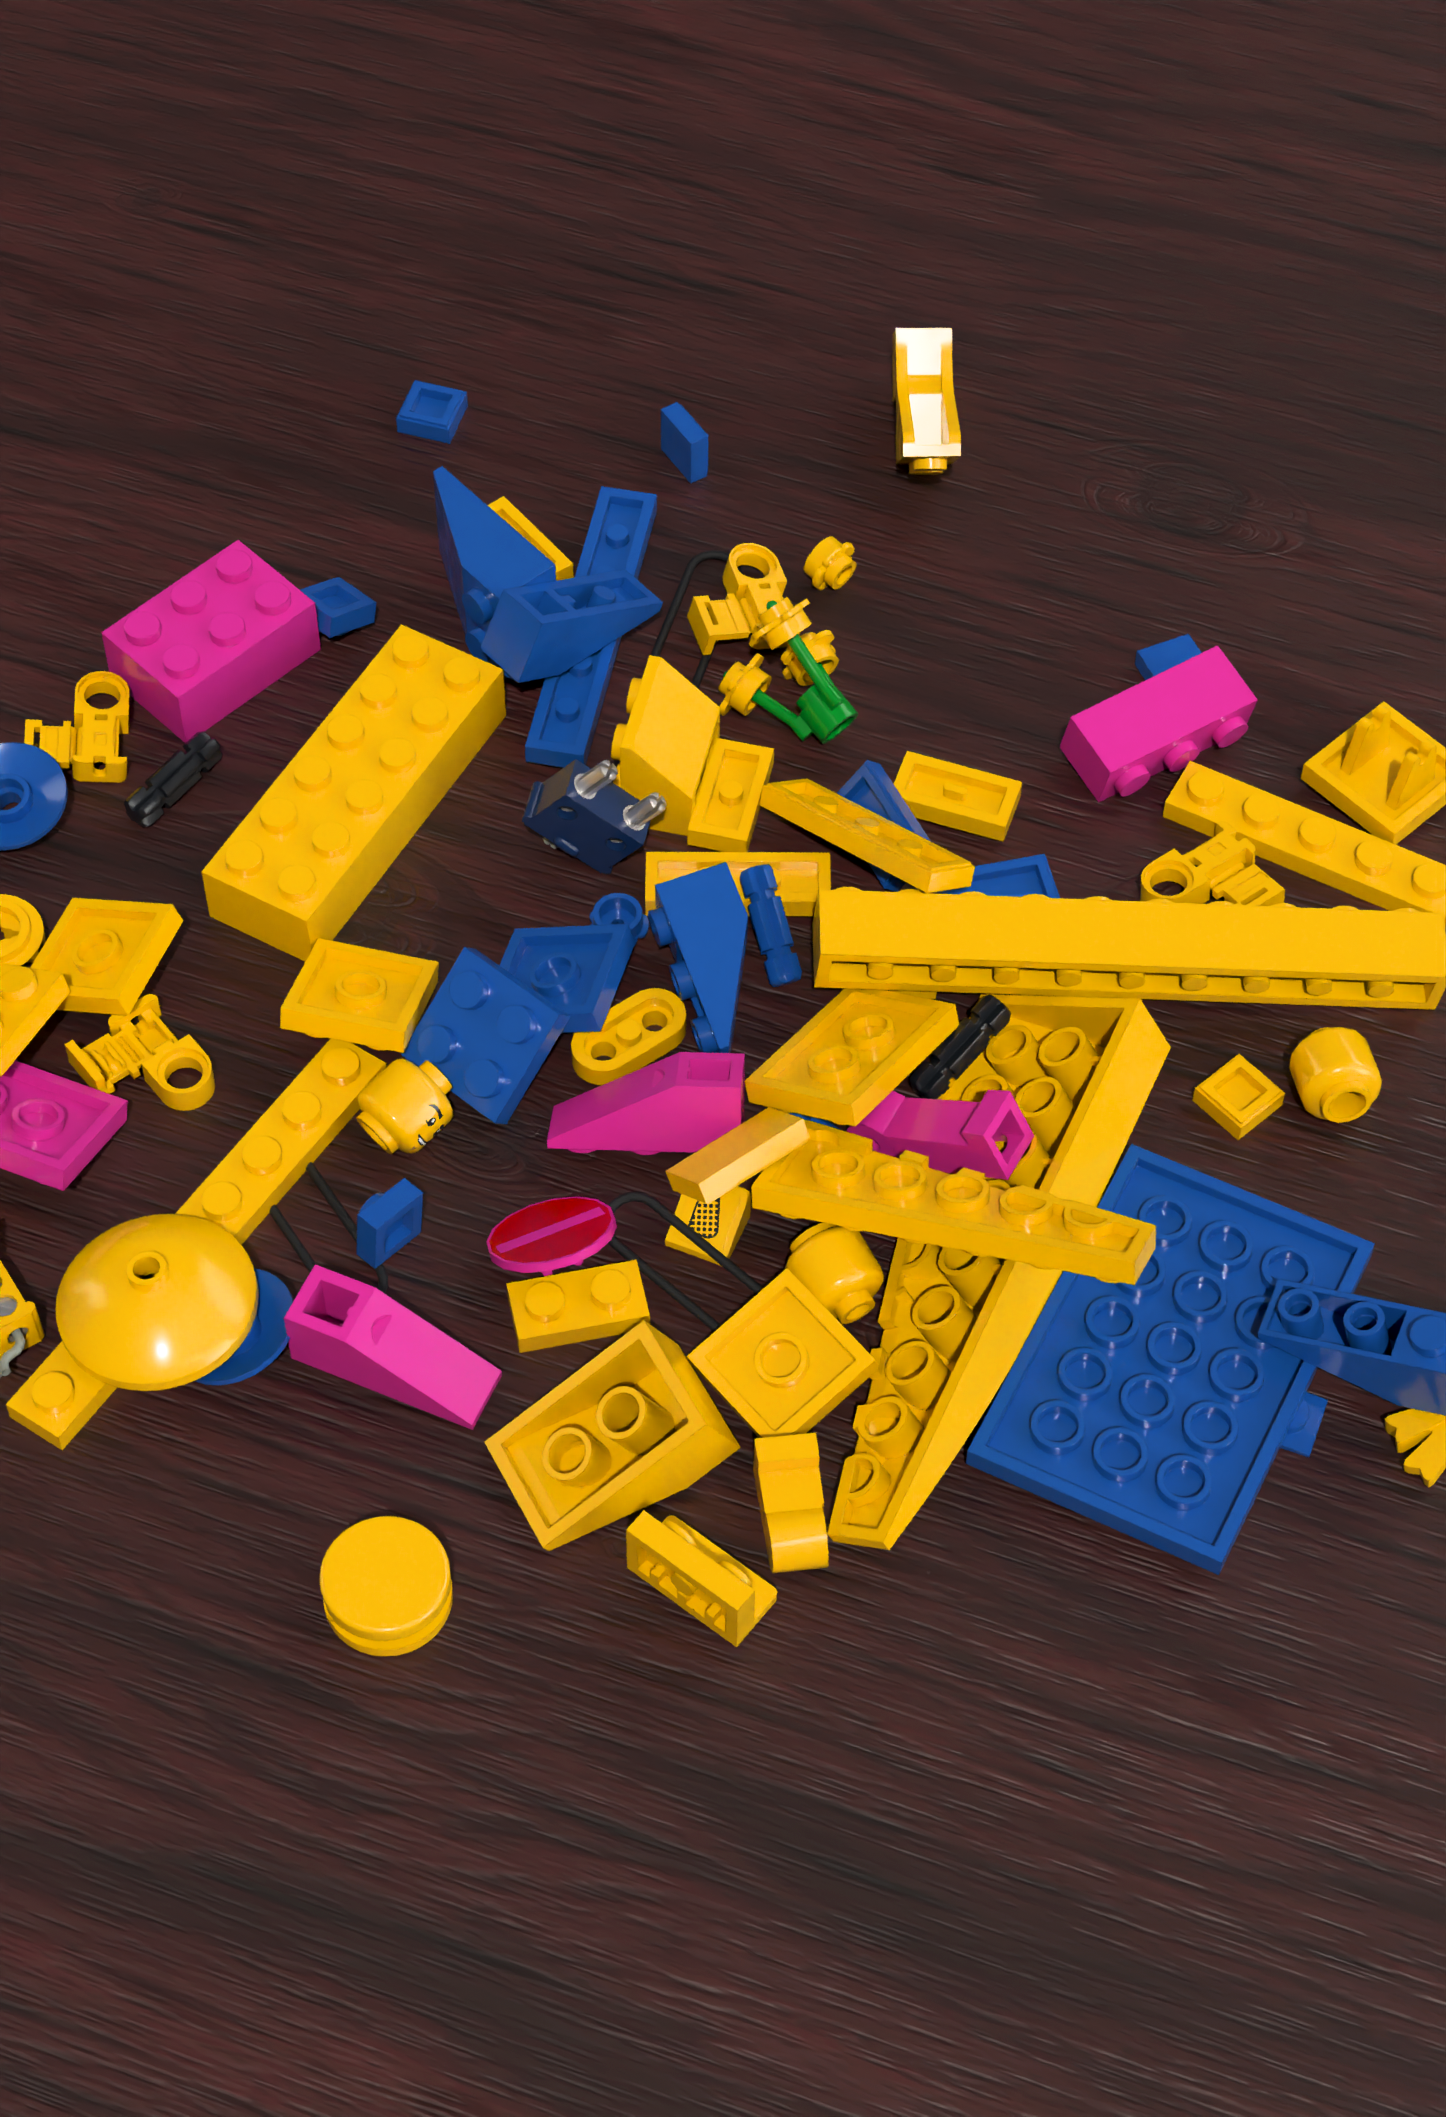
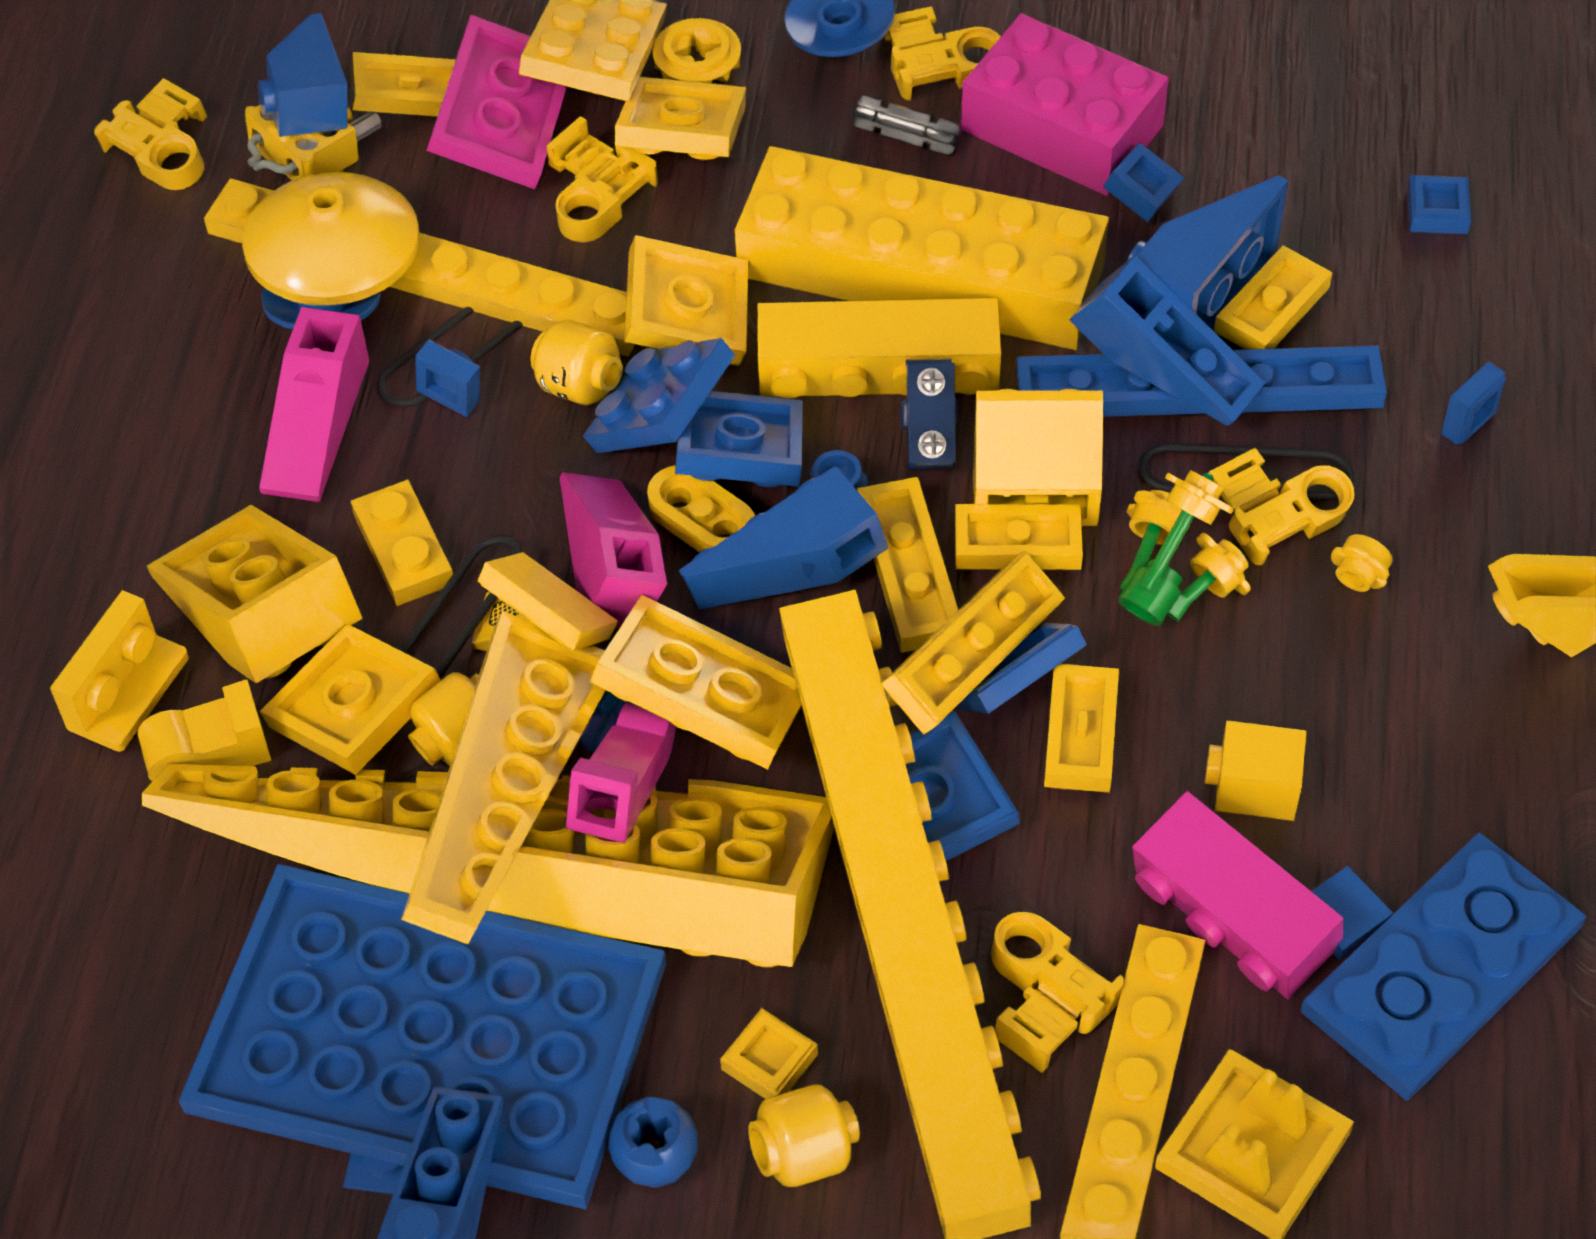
camera: 80 degrees right, 0 degrees up
(386, 1586) = (90, 462): yellow head -> none
(472, 852) = (865, 345): none -> yellow brick
(551, 1235) = (458, 496): red piece -> none
(770, 925) = (887, 565): blue axle -> none
(960, 1048) = (751, 782): black axle -> none
(1034, 681) = (1257, 770): none -> yellow brick
(1225, 597) = (1442, 965): none -> blue piece
(1321, 1185) = (642, 1162): none -> blue piece

